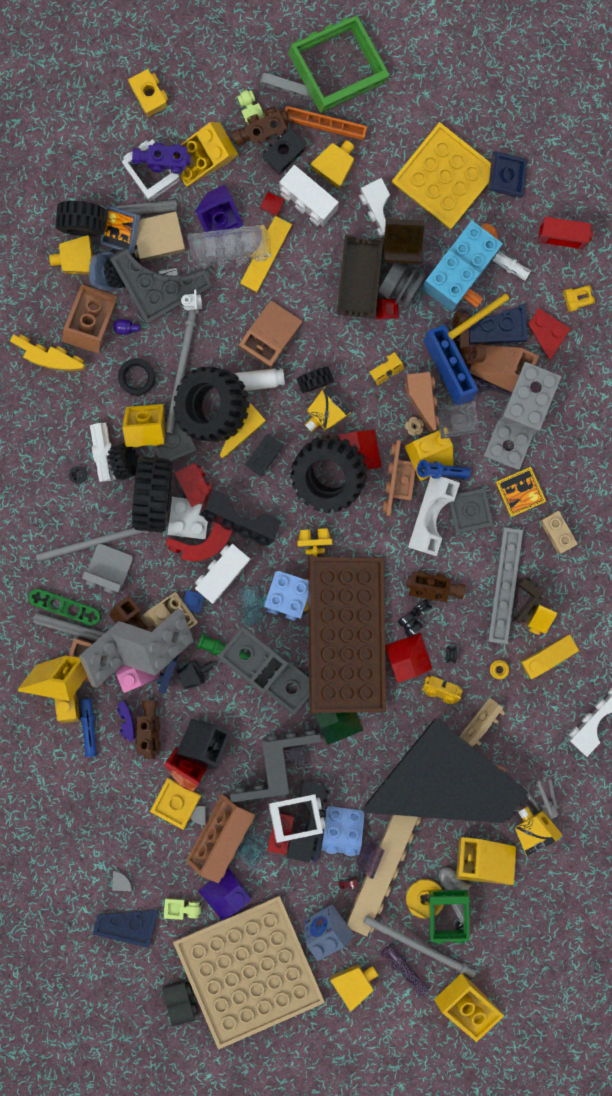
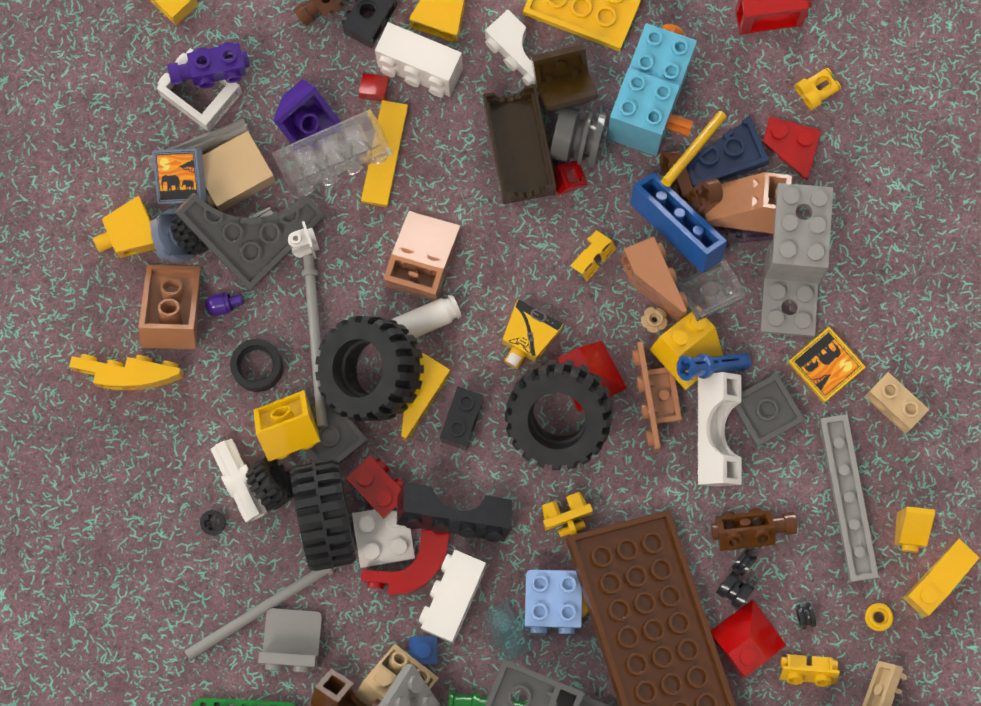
camera: 10 degrees left, 10 degrees down
(80, 218) = (121, 176): black tyre -> none
(209, 151) = (271, 45): yellow slope -> none
(315, 379) = (500, 295): black tyre -> none
(511, 265) = (716, 73): white pin -> none
(528, 586) = (885, 489): dark brown bracket -> none

